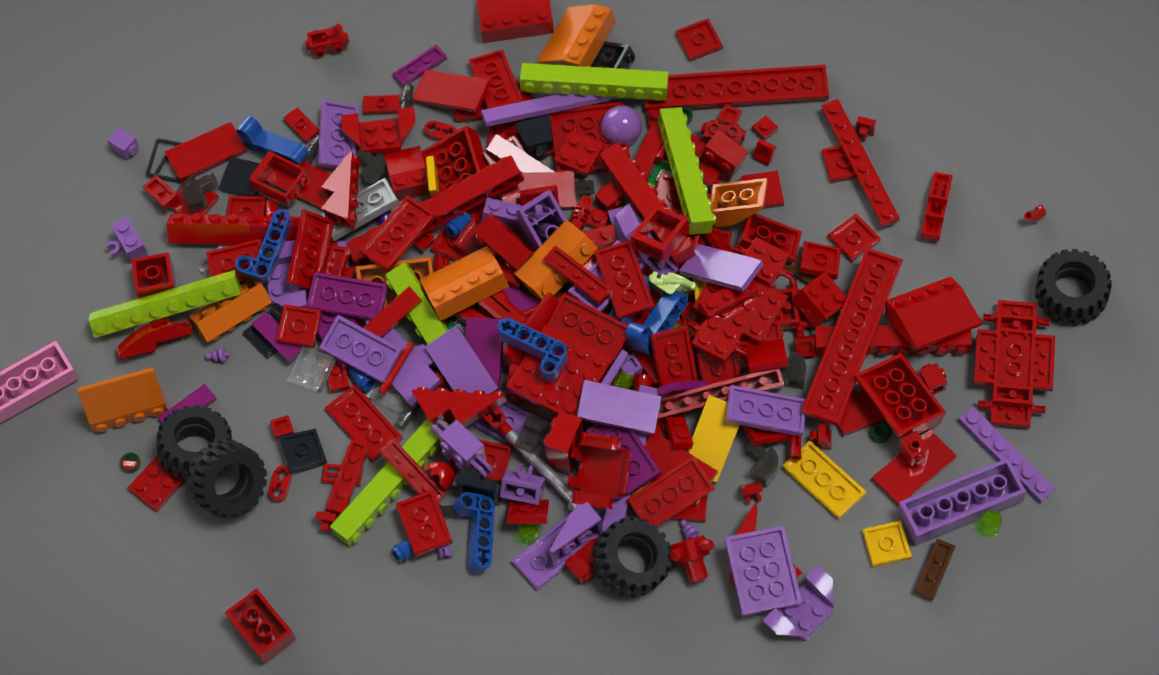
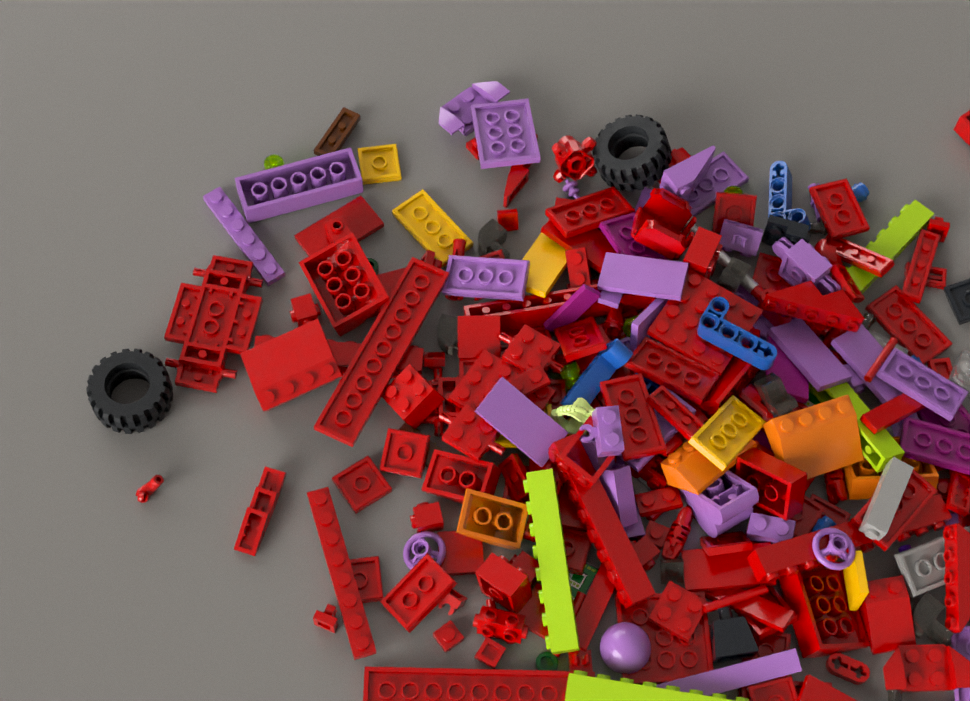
camera: 175 degrees right, 0 degrees up
(407, 225) = (886, 499): none -> light grey brick
(423, 435) = (847, 284): none -> red plate
(447, 180) = (838, 539): none -> medium lavender piece
(495, 301) = (775, 395): none -> clear smoke brick
(538, 158) = (735, 598): none -> red bar
(540, 268) = (727, 432): none -> yellow tile
(649, 231) = (606, 431): none -> medium lavender brick
(793, 148) = (418, 592): none -> red tile
(793, 183) = (419, 543): none -> medium lavender piece
(793, 210) = (427, 517): none -> red brick

